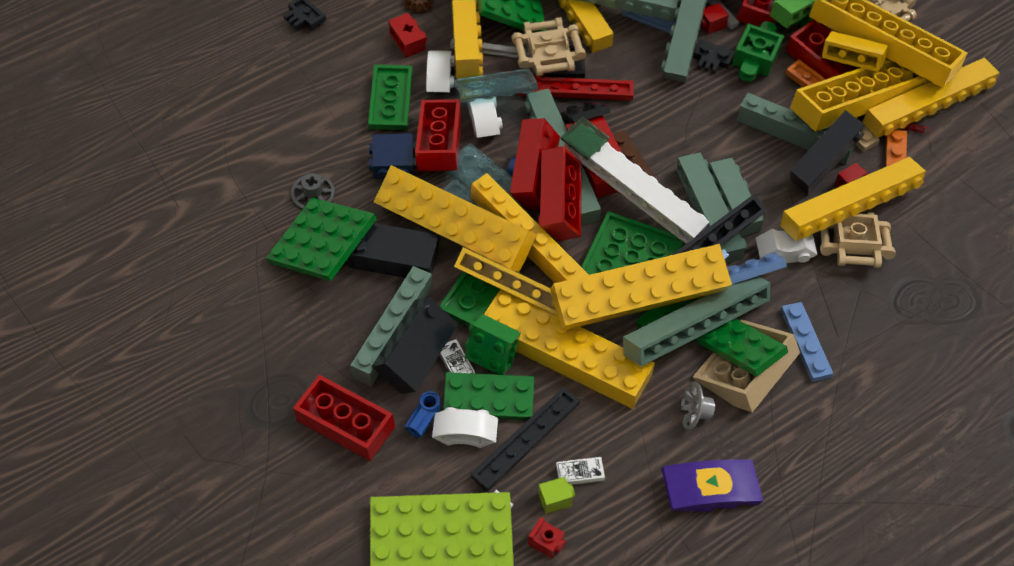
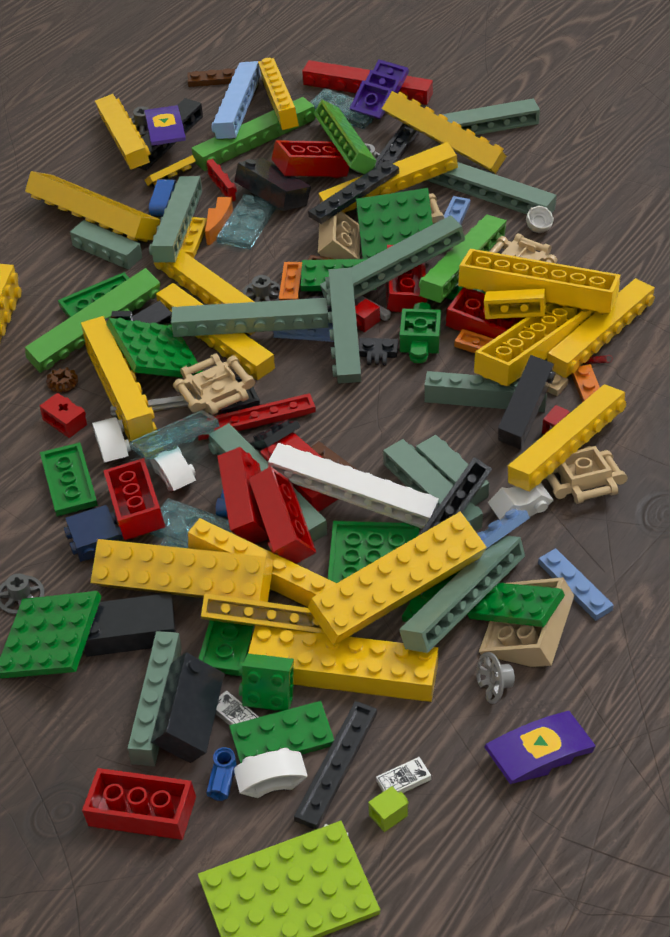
camera: 15 degrees left, 10 degrees down
(541, 543) = (396, 854): red brick -> none
(585, 138) = (287, 455): clear green piece -> none

